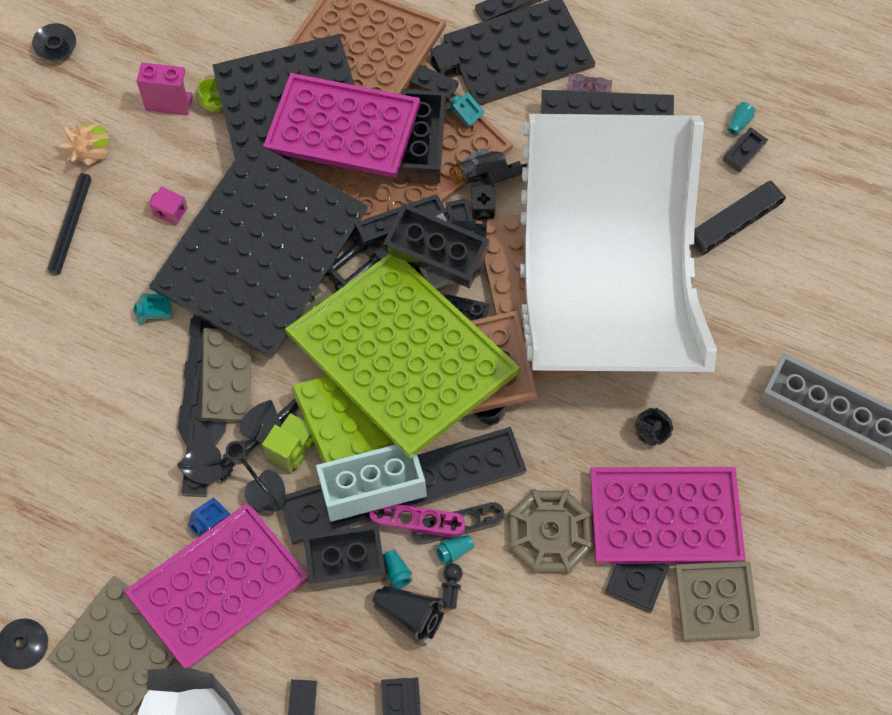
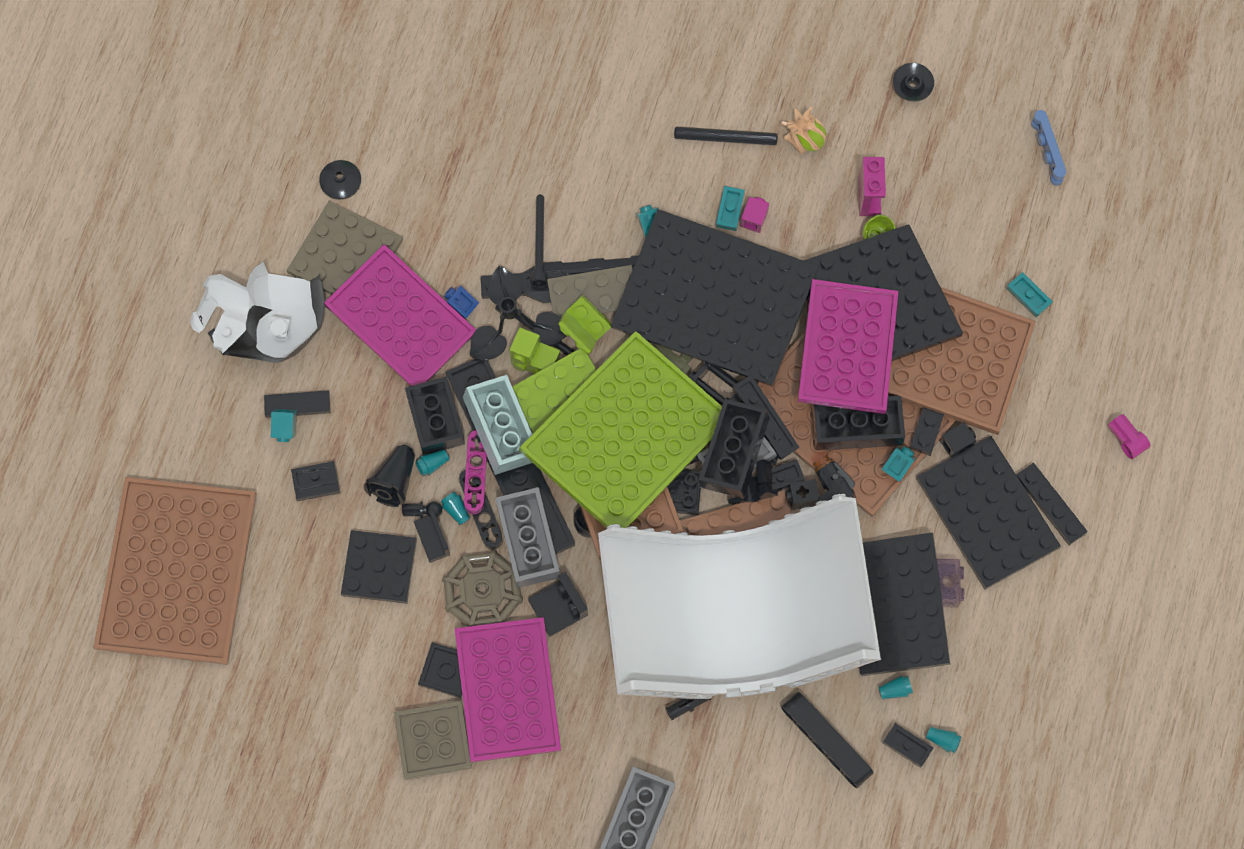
camera: 85 degrees right, 5 degrees up
(155, 228) = (730, 208): none -> teal plate
(197, 427) = (539, 277): none -> black piece
(263, 384) = (584, 323): none -> lime bracket
(484, 577) = (432, 537): none -> black panel
(505, 468) = (527, 537): none -> light grey brick
(511, 642) = (379, 567): none -> black plate
(576, 450) = (559, 605): none -> black bracket
(653, 426) = (589, 670): black piece -> none

